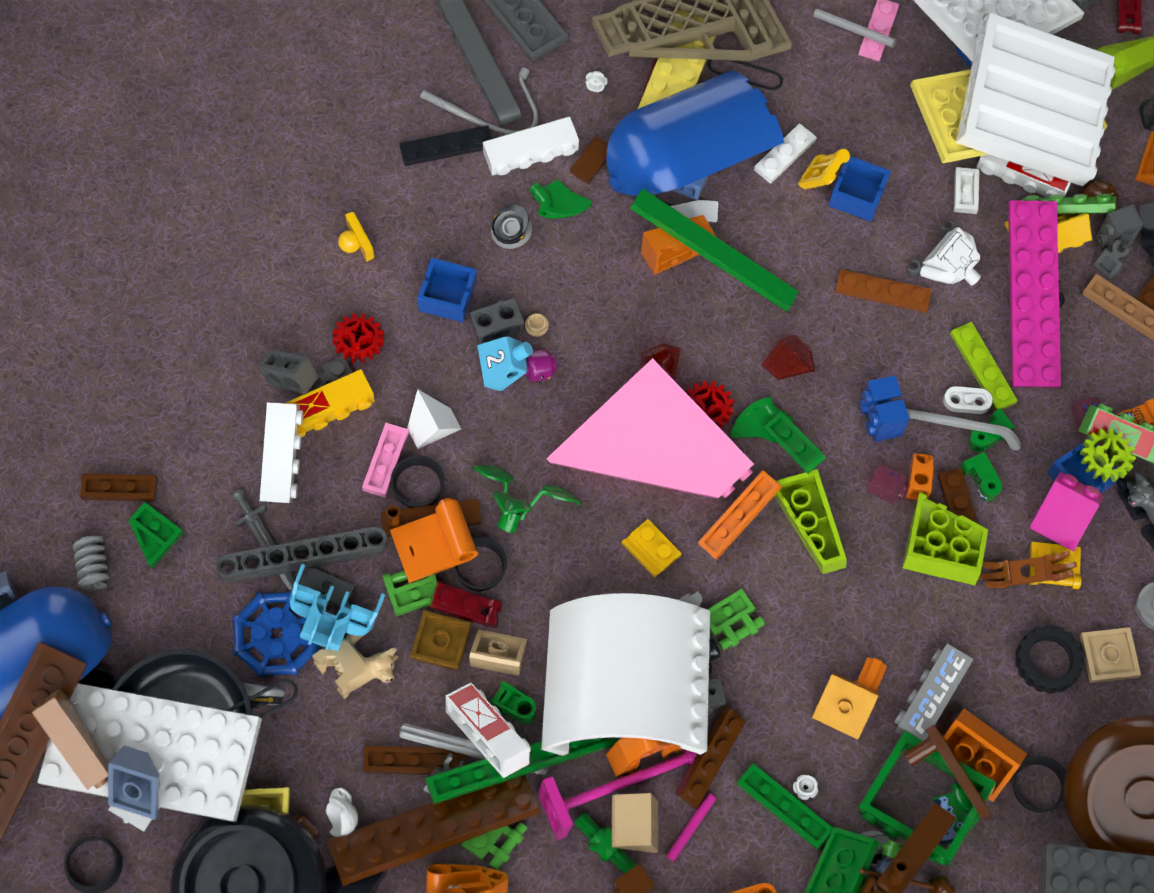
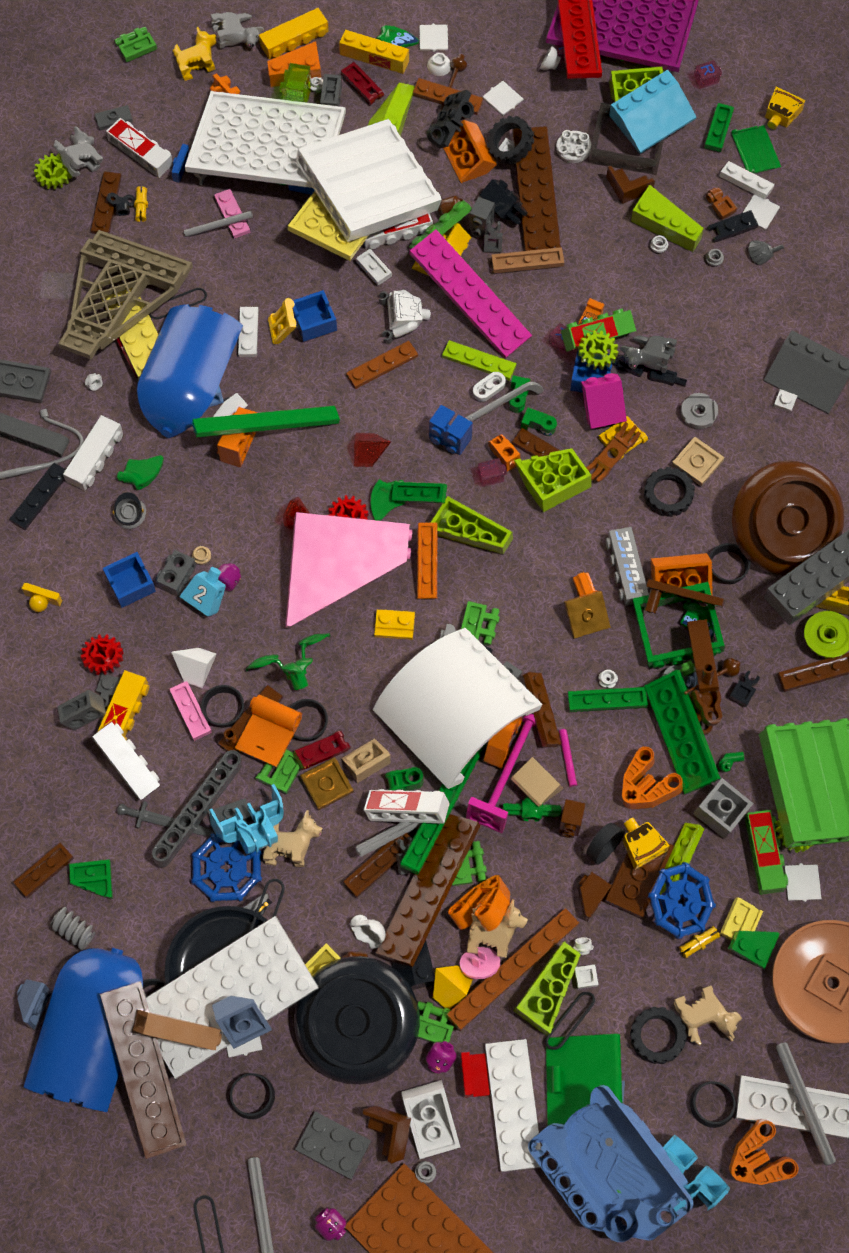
camera: 40 degrees left, 0 degrees up
(590, 161) = (137, 431): reddish brown tile -> none

